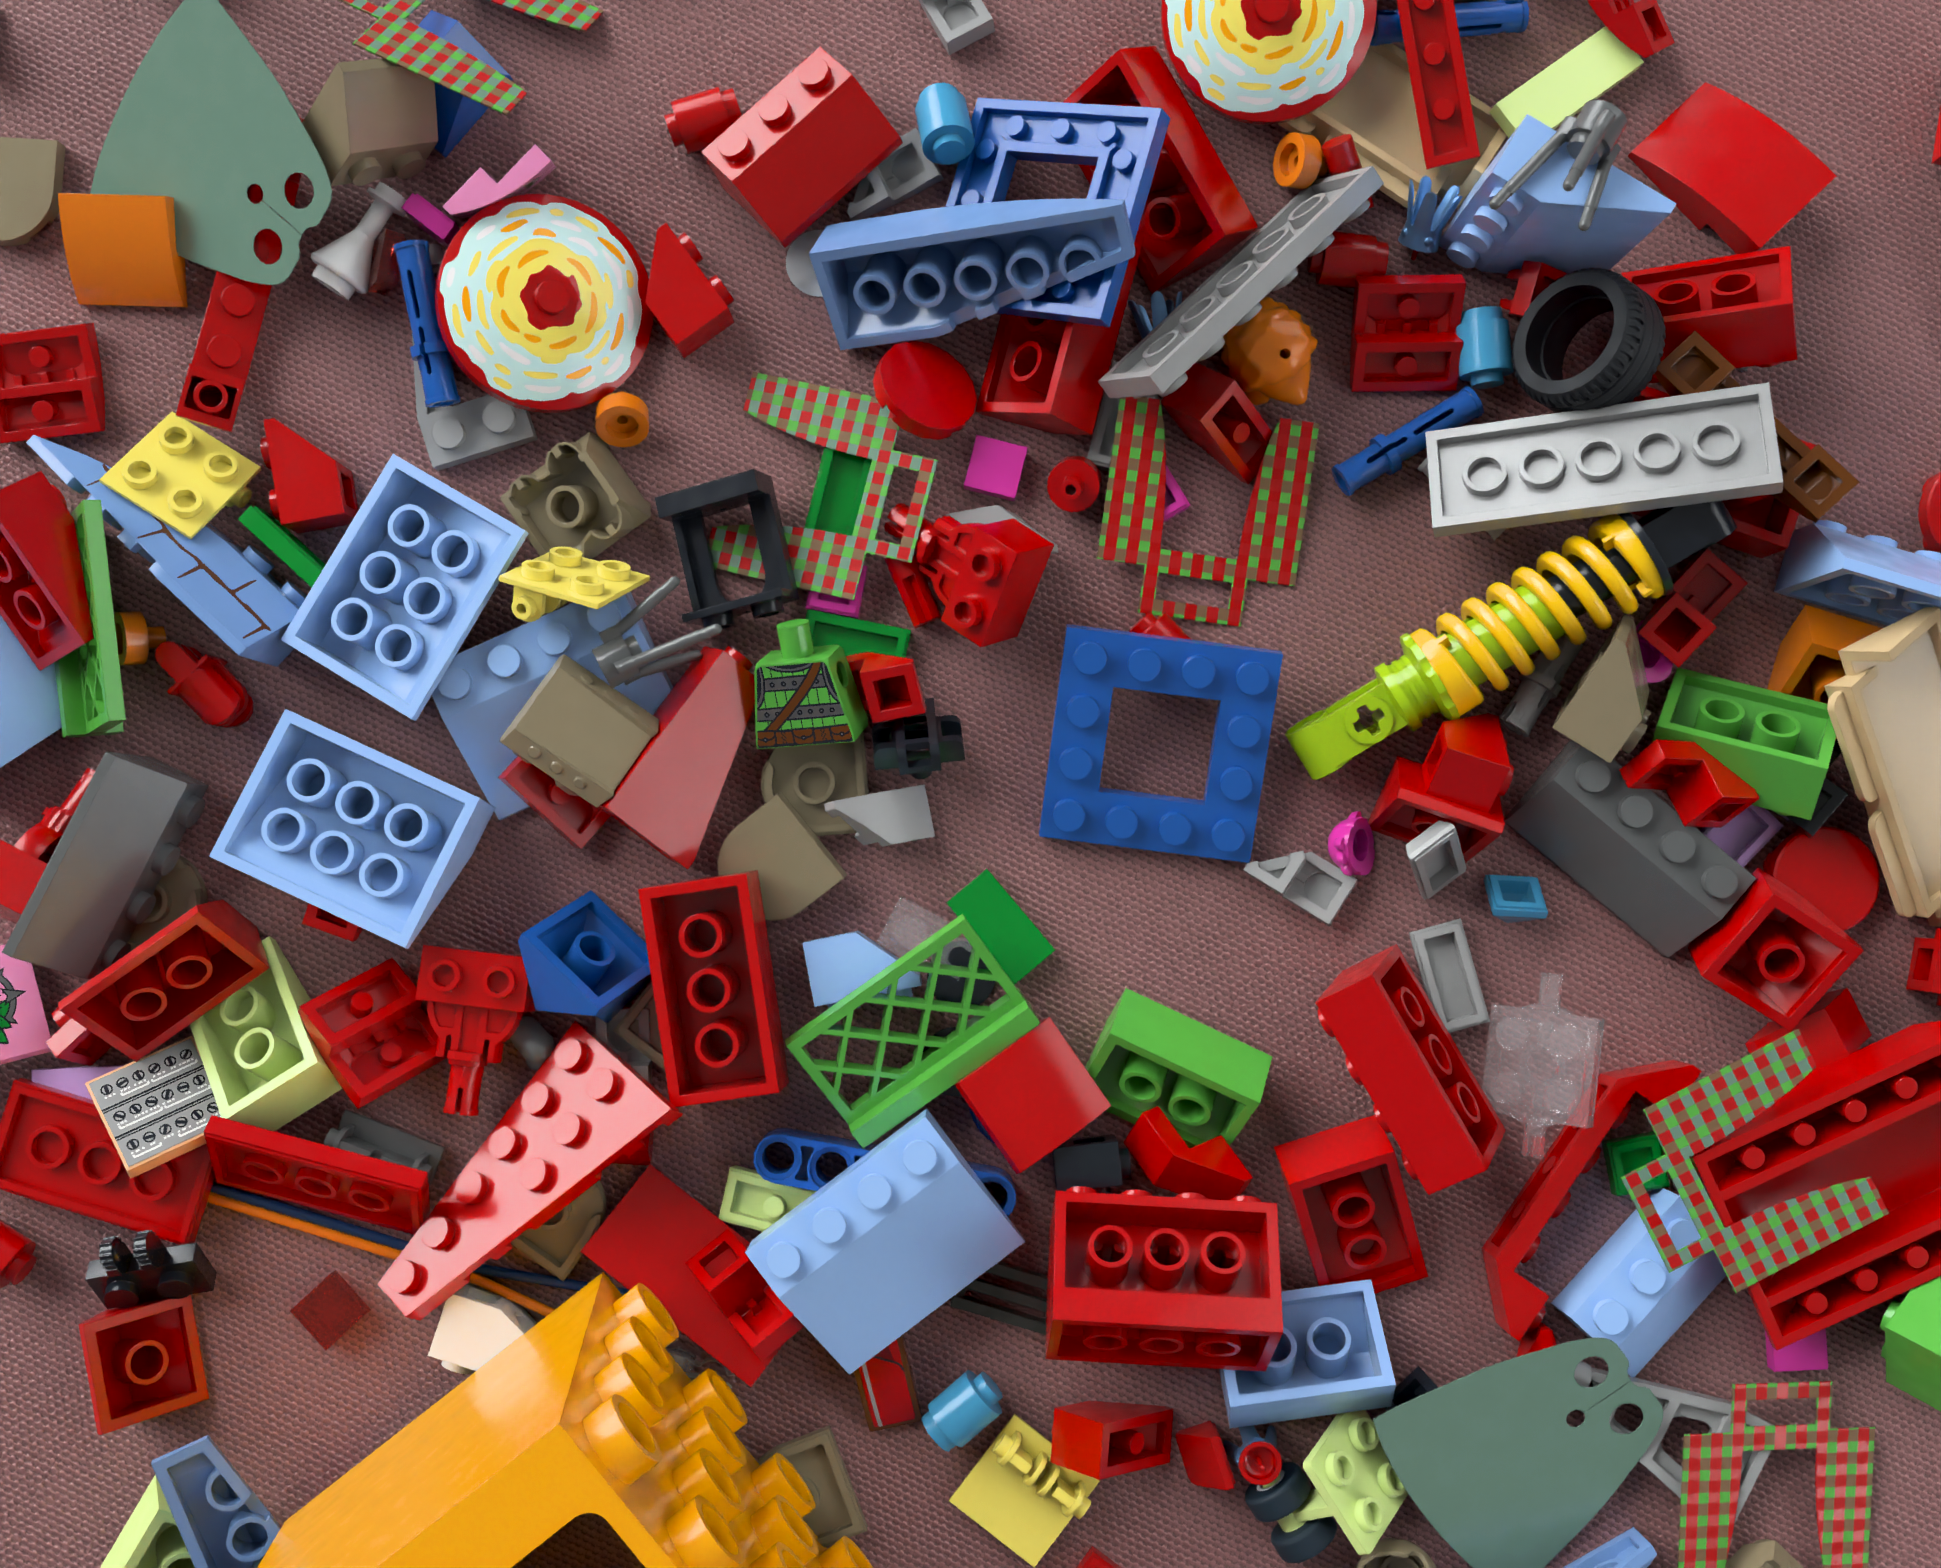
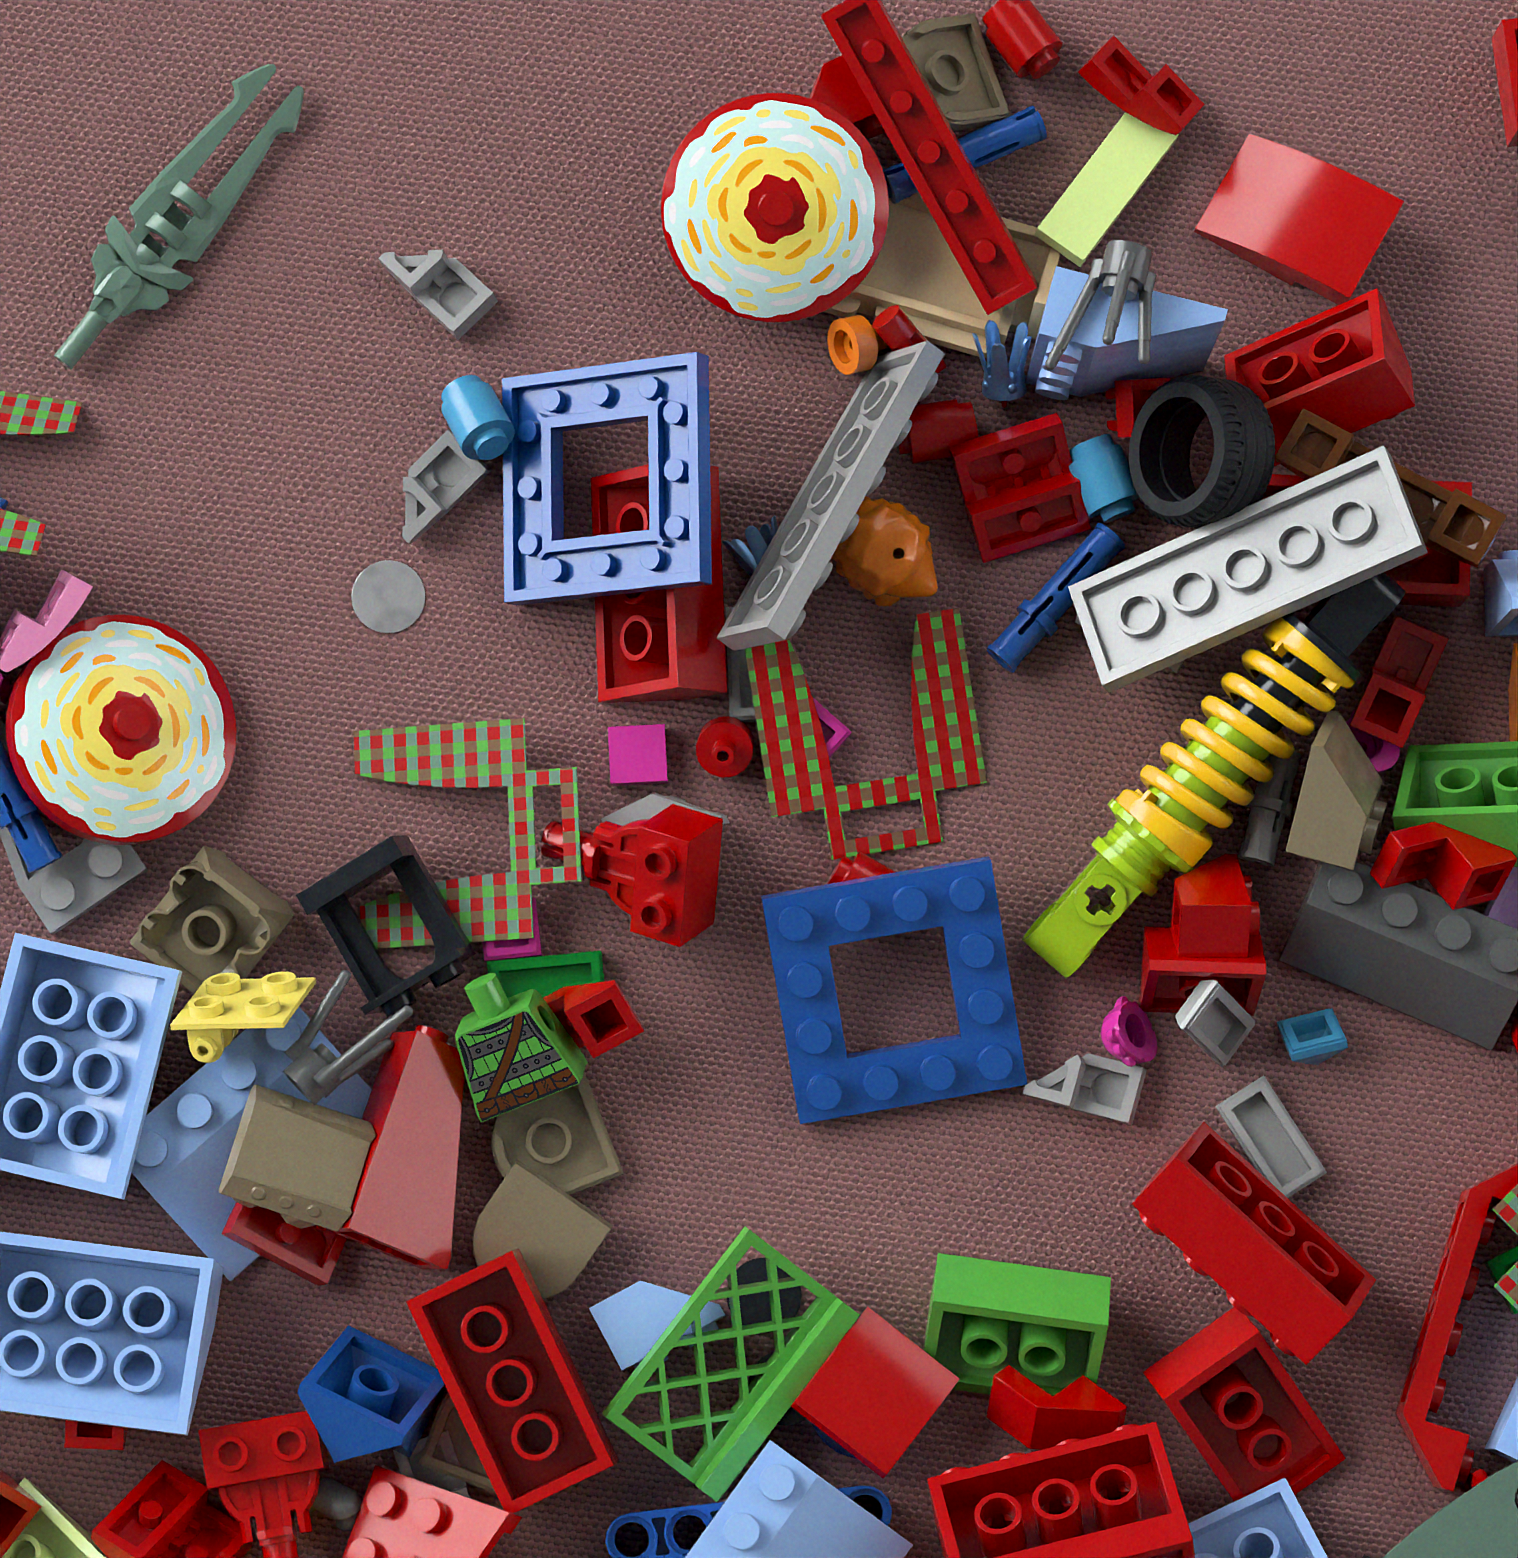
camera: 15 degrees left, 5 degrees down
(622, 419) = (234, 823): orange tile -> none
(682, 297) = (259, 678): red slope -> none
(702, 118) = (226, 487): red brick -> none
(801, 147) = (338, 488): red slope -> none
(837, 492) = (482, 831): green tile -> none
(886, 816) = (635, 1151): light grey slope -> none
(912, 925) = (695, 1257): clear plate -> none
(913, 591) = (592, 909): red piece -> none
(918, 747) = (646, 1069): black piece -> none
(924, 389) = (540, 698): red tile -> none
(946, 265) = (532, 563): medium blue wedge -> none
(1001, 925) = (790, 1228): green tile -> none
(1091, 1163) = (958, 1445): black brick -> none
(1192, 201) = (757, 420): red slope -> none
(1220, 420) = (857, 637): red slope -> none
(1543, 1064) = (1391, 1199): clear plate -> none

